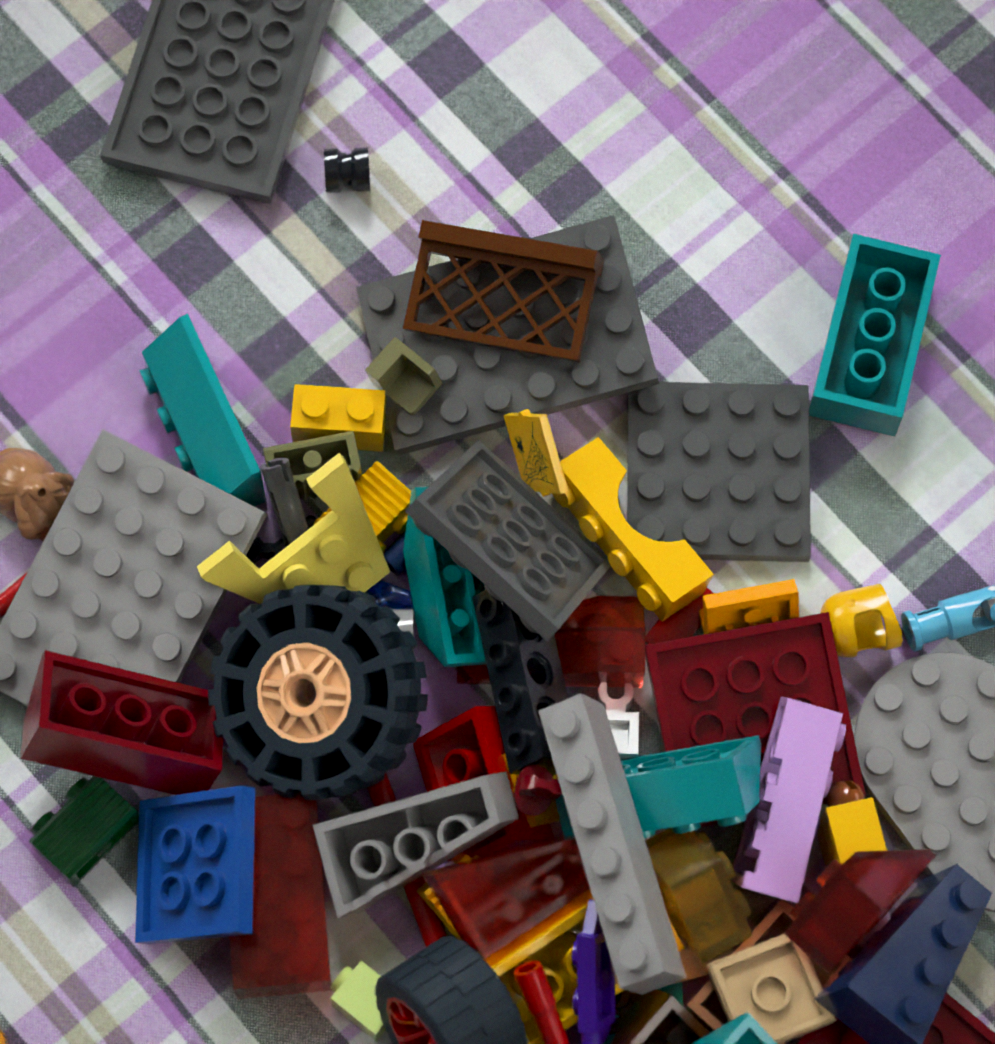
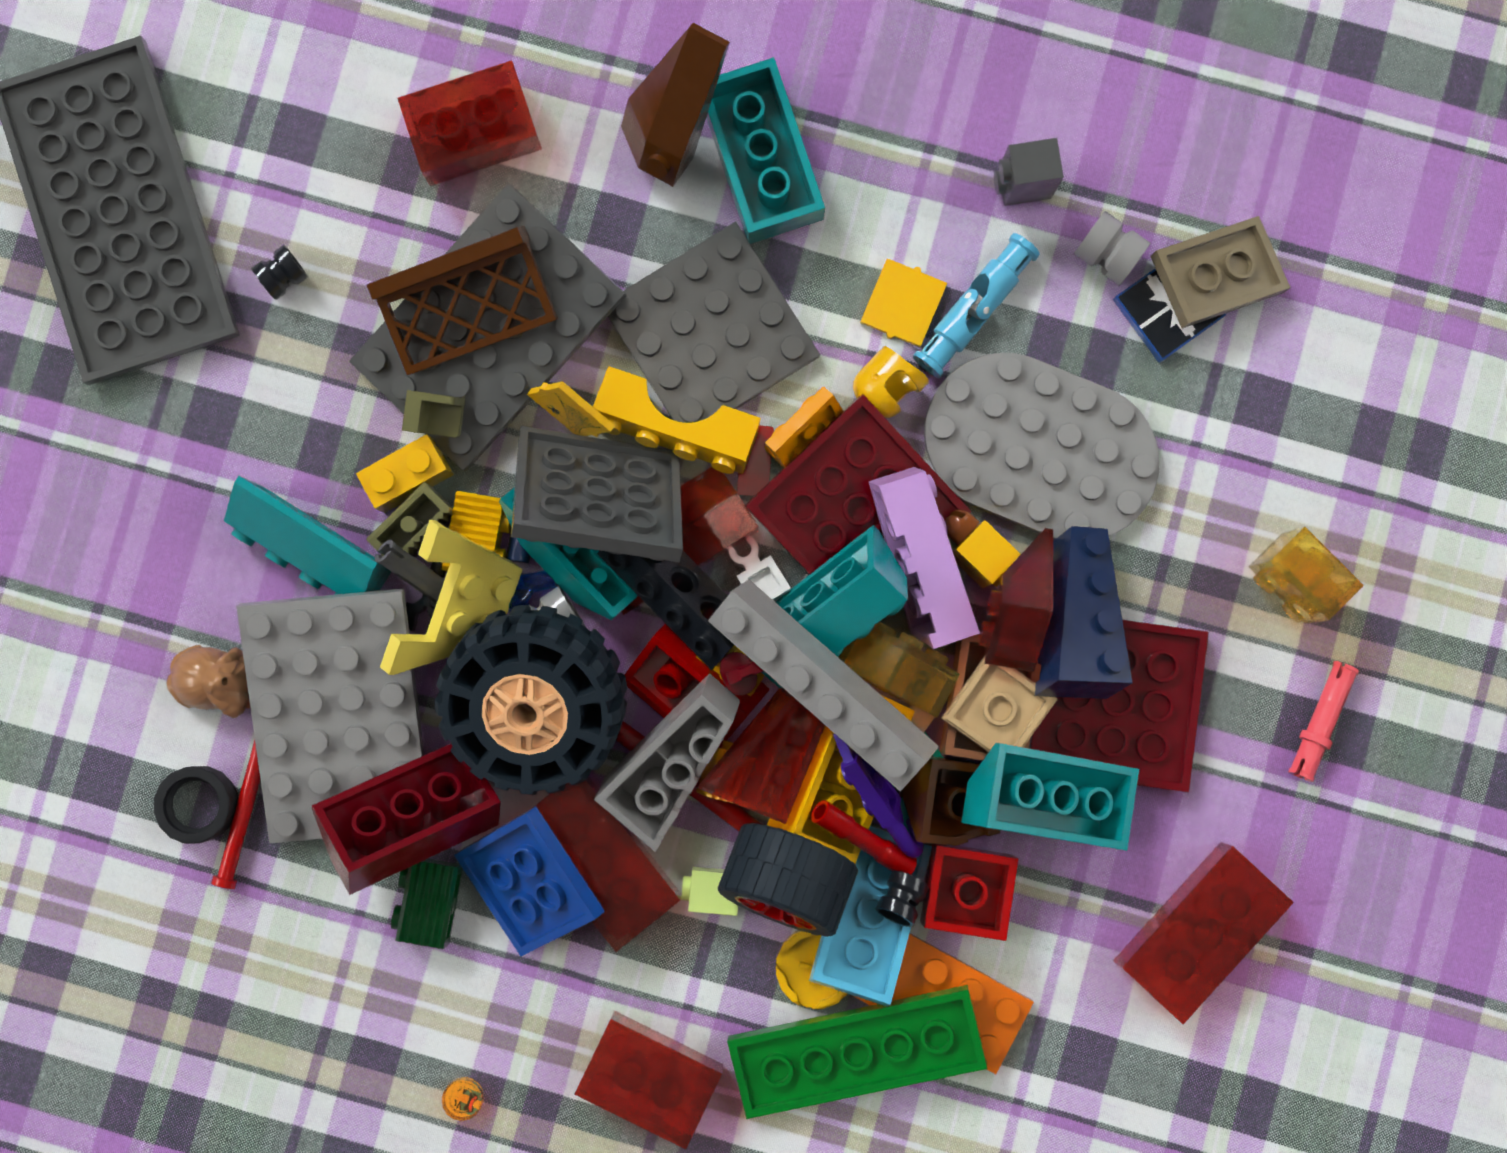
camera: 30 degrees left, 15 degrees up
(613, 146) = (469, 123): none -> clear red brick
(816, 239) = (672, 104): none -> reddish brown wedge
(924, 561) = (903, 302): none -> yellow piece

